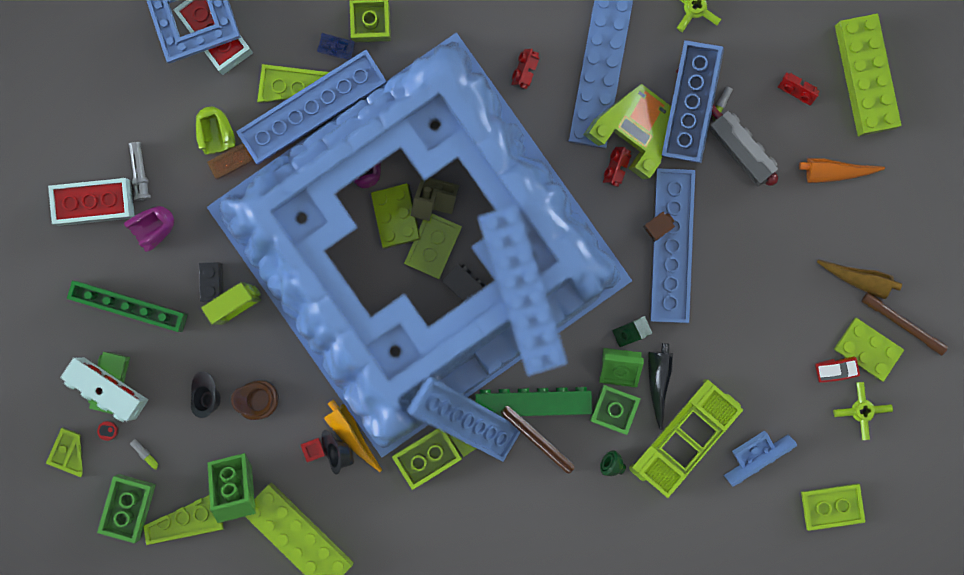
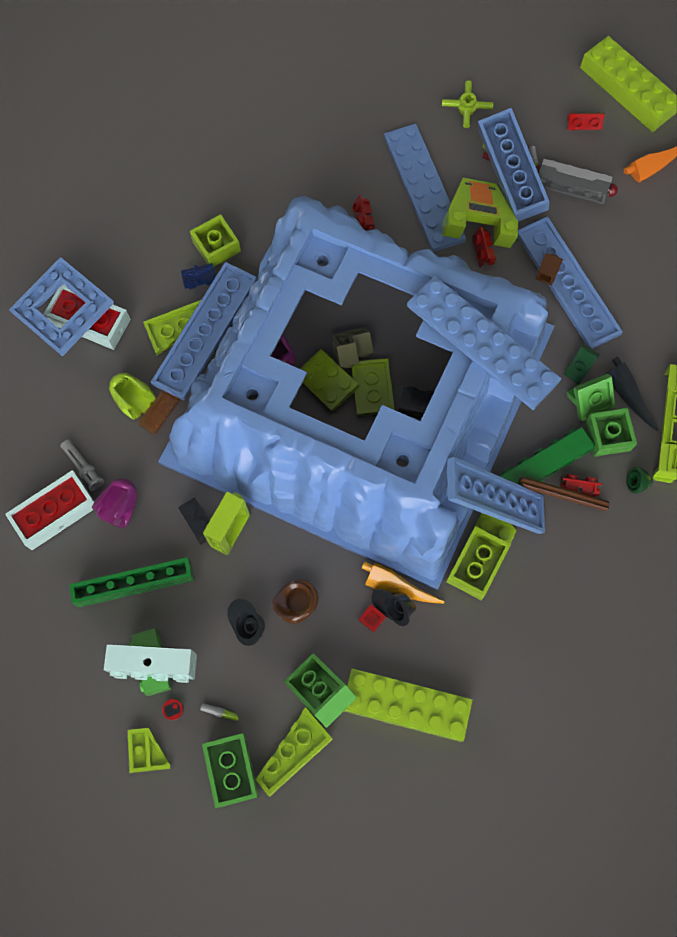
camera: 30 degrees left, 15 degrees down
(567, 442) = (587, 485): none -> red hinge

